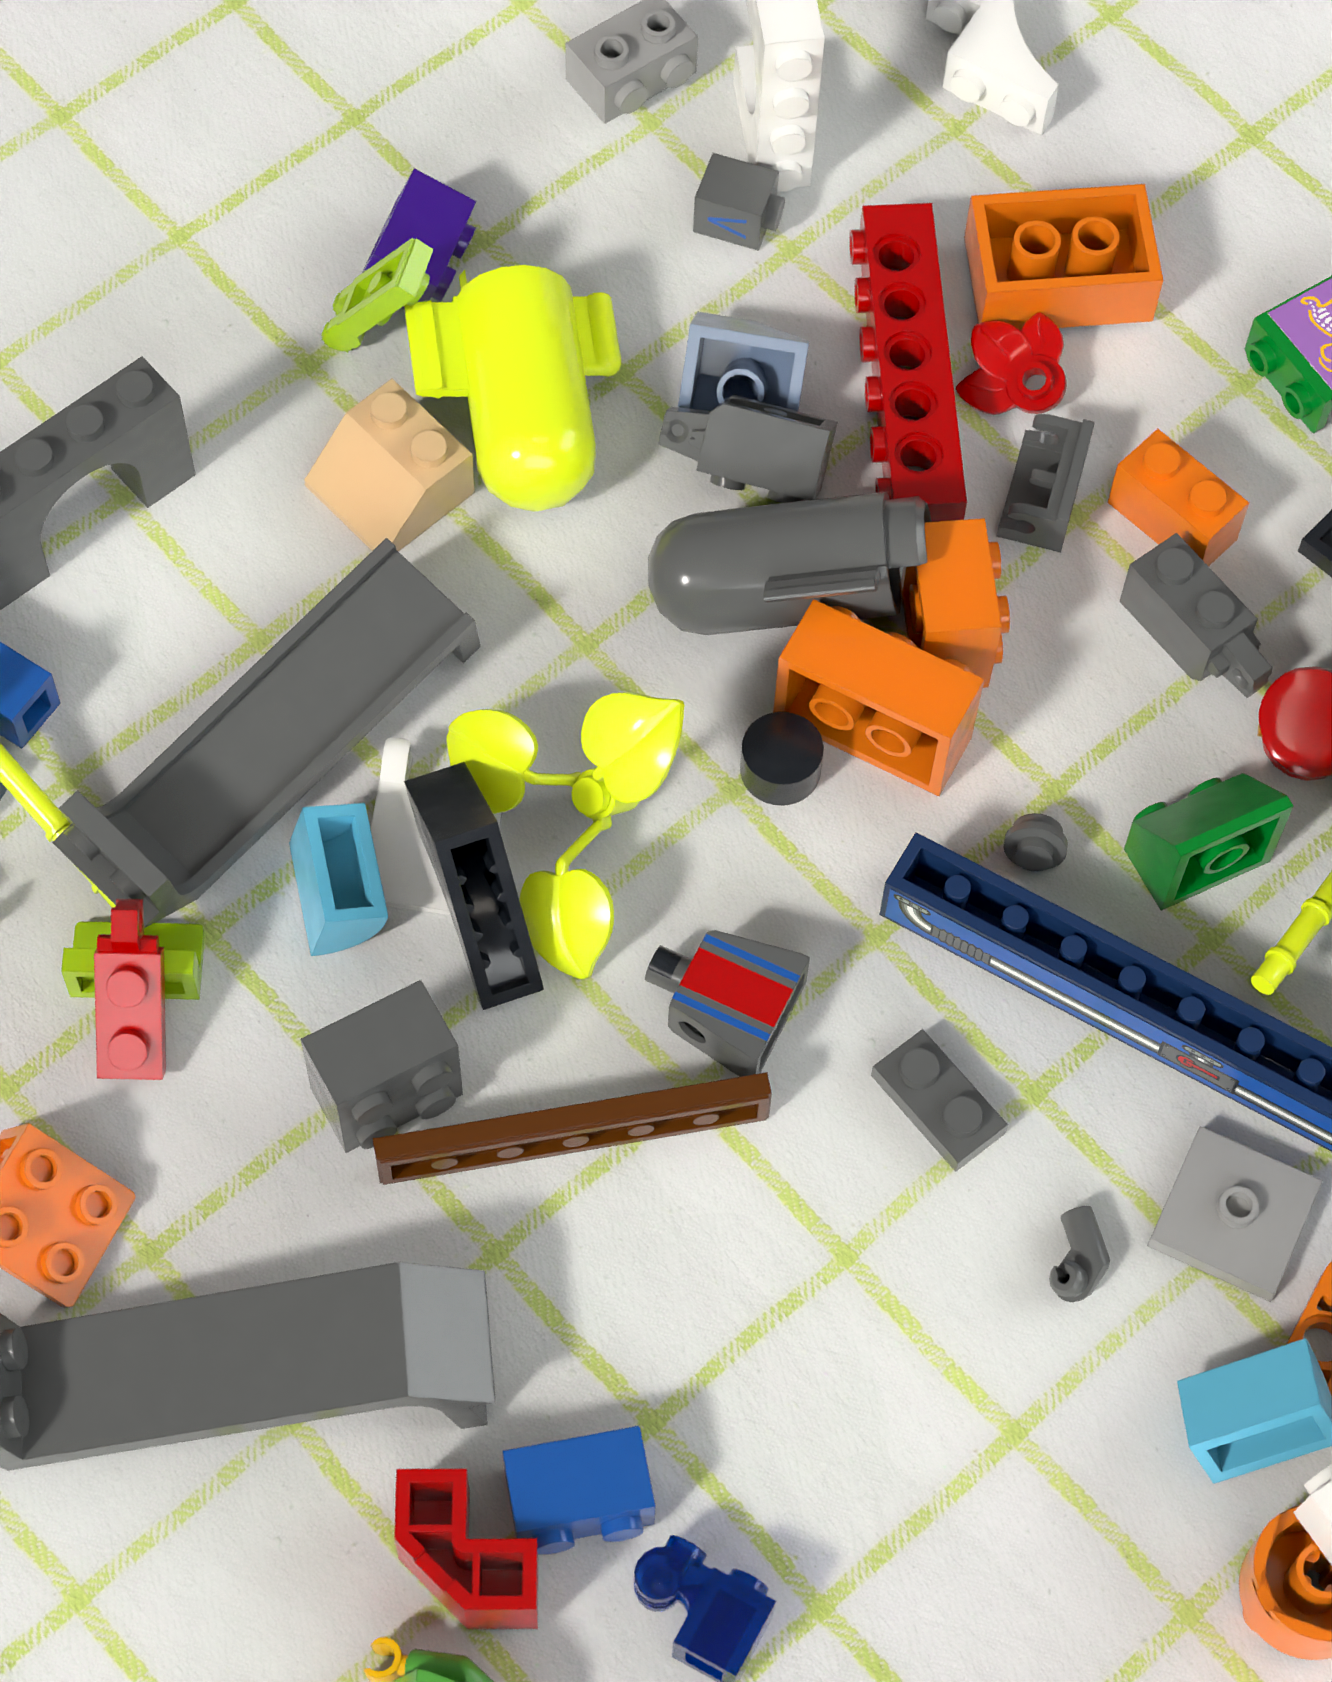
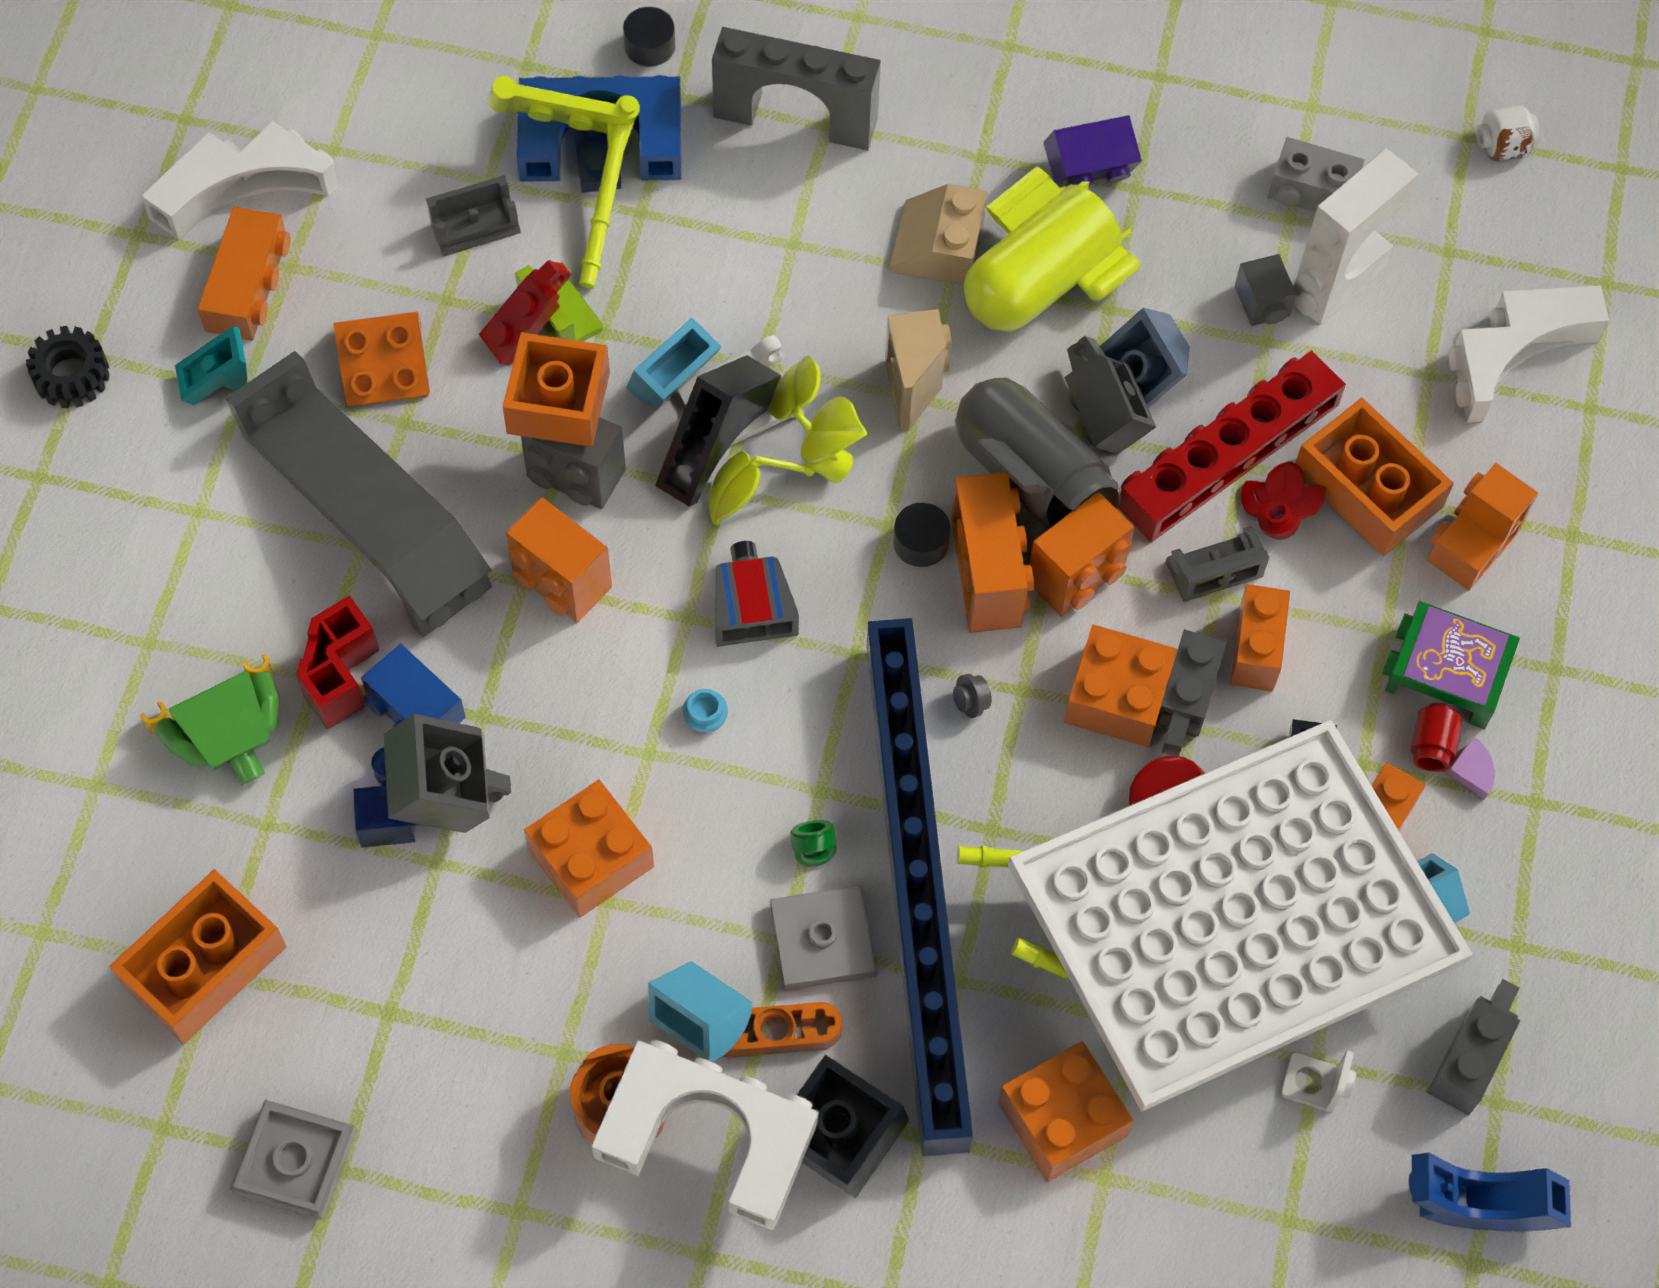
camera: 55 degrees right, 0 degrees up
(268, 737) = (727, 279): dark grey panel -> none
(330, 1013) = (556, 389): none -> orange brick
(378, 294) = (1033, 152): lime hinge -> none
(527, 1182) = (558, 560): none -> orange brick
(560, 610) = (916, 361): none -> tan slope
(572, 1128) = (634, 585): reddish brown tile -> none
(739, 1519) = (440, 774): none -> dark grey hinge
(841, 1151) = (705, 710): none -> medium azure plate
(939, 1100) = (775, 743): dark grey plate -> none
(947, 1404) = (589, 848): none -> orange brick
(1085, 1261) = (732, 875): dark grey arm -> none
(1105, 1139) = (811, 838): none -> green tile
(1138, 680) = (1120, 685): none -> orange brick
(1200, 198) = (1483, 527): none -> orange brick
(1206, 837) = (1042, 779): green slope -> none

